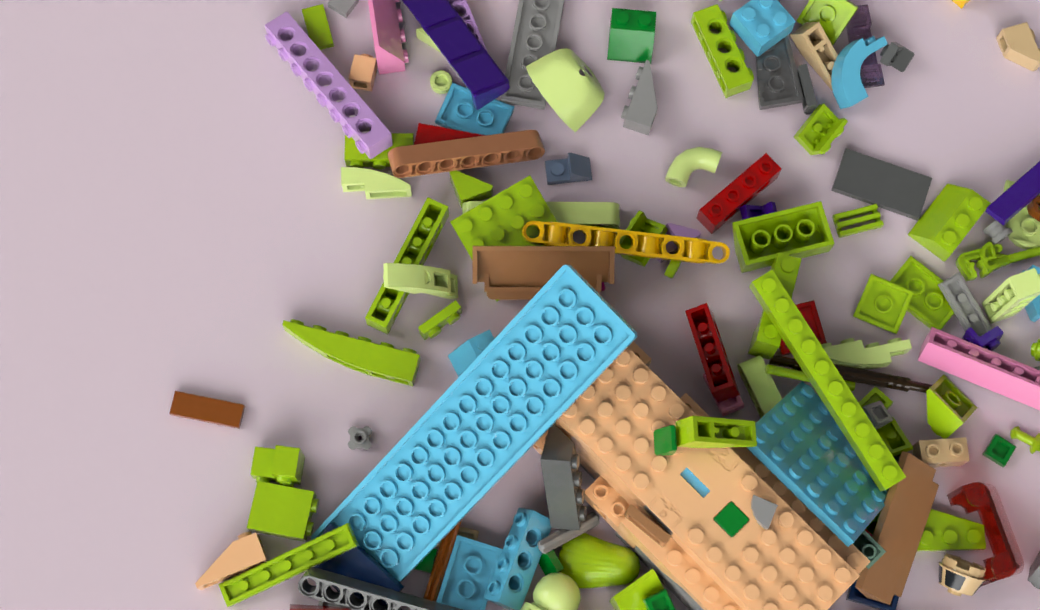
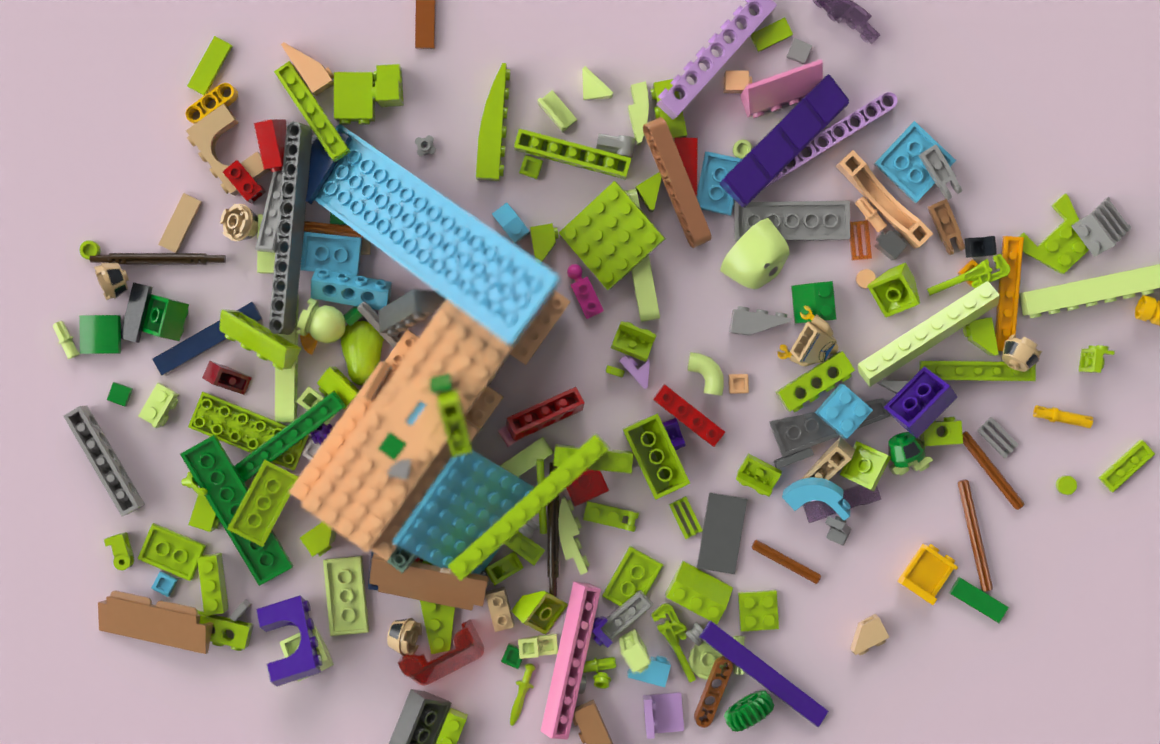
camera: 85 degrees right, 15 degrees up
(333, 229) = (593, 87): none -> yellowish green slope
(352, 277) = (557, 111): none -> yellowish green panel
(407, 213) = (619, 145): none -> light grey piece
(411, 319) = (531, 167): none -> lime tile
(420, 279) = (556, 166): yellowish green slope -> none
(433, 326) = (526, 185): lime plate -> none
(498, 316) = (543, 240): none -> lime slope
(524, 270) = (583, 255): medium nougat slope -> none
(569, 170) = (684, 271): sand blue slope -> none
(642, 243) = (620, 311): yellow beam -> none
(679, 41) = (813, 343): none -> tan torso
(710, 135) = (738, 383): none -> light nougat tile
(843, 305) = (610, 516): none -> lime plate
(877, 414) = (518, 552): light grey slope -> none
(883, 304) = (616, 548): lime plate -> none
(924, 120) = (786, 561): none -> dark orange axle
(977, 160) = (758, 610): none -> lime plate
(990, 417) = (538, 645): none -> yellowish green slope
(1021, 350) = (599, 664): none -> lime axle

